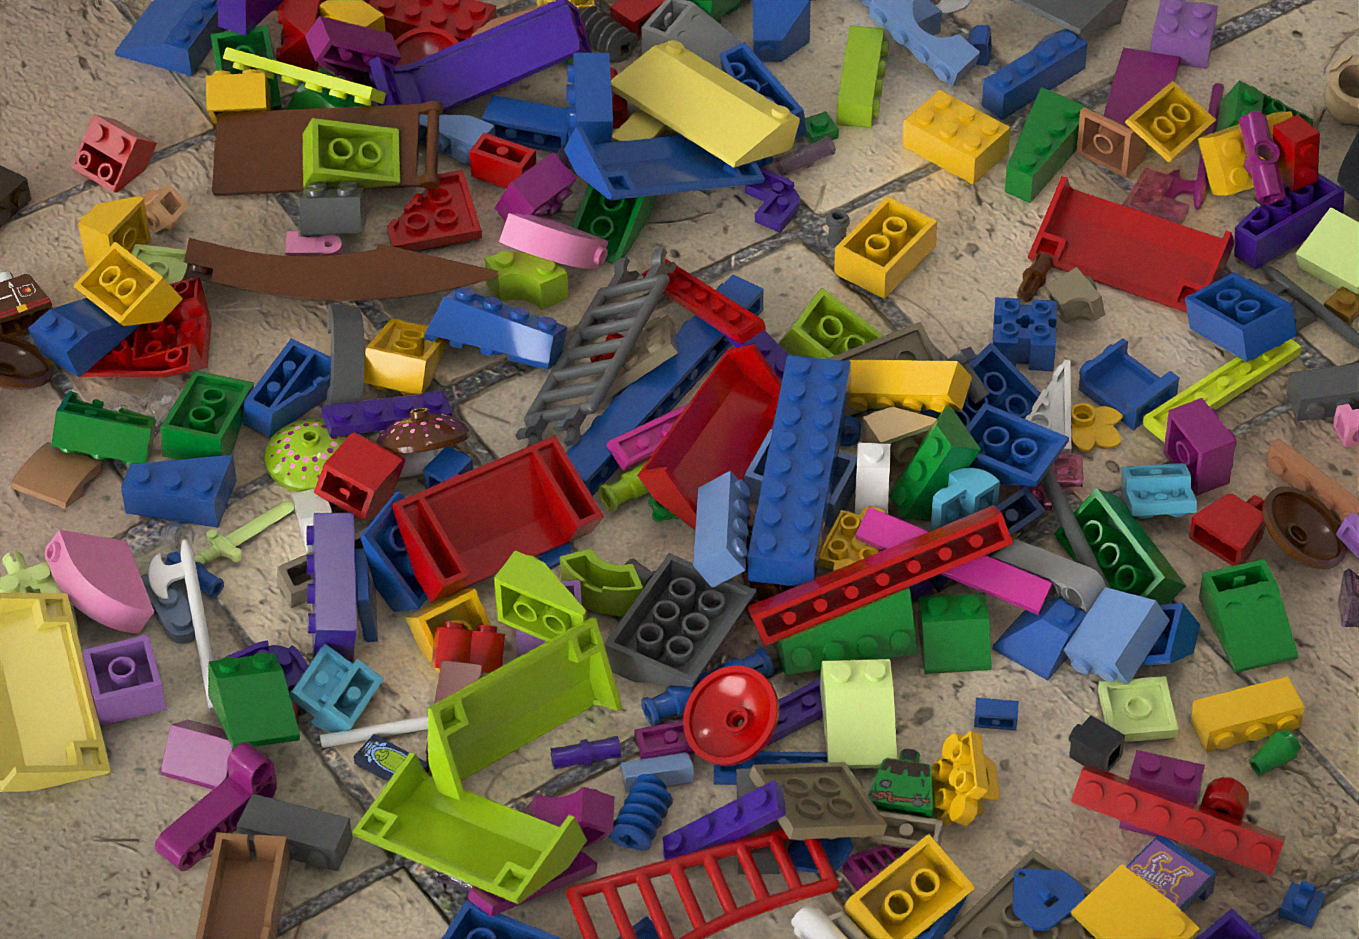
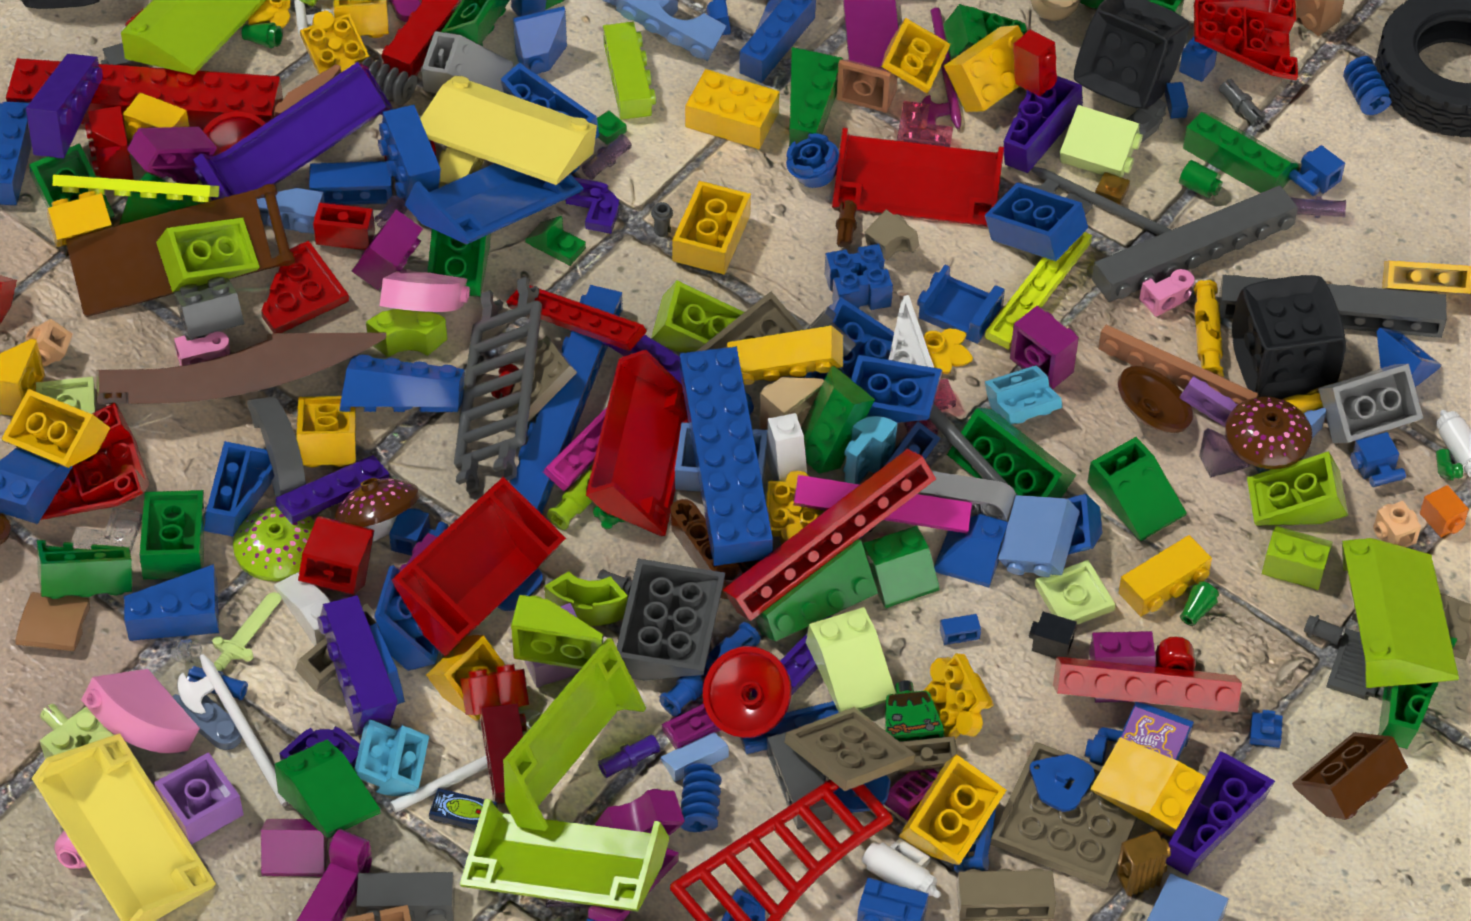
camera: 20 degrees left, 5 degrees up
(719, 227) = (556, 242): none -> green slope
(721, 529) = (678, 525): medium blue brick -> none
(728, 822) = (780, 791): dark purple plate -> none
(1020, 204) = (813, 160): none -> blue cone
(1097, 872) = (1097, 748): none -> blue plate
(1229, 527) = (1092, 413): red torso -> none
(1264, 172) = (1003, 64): magenta piece -> none

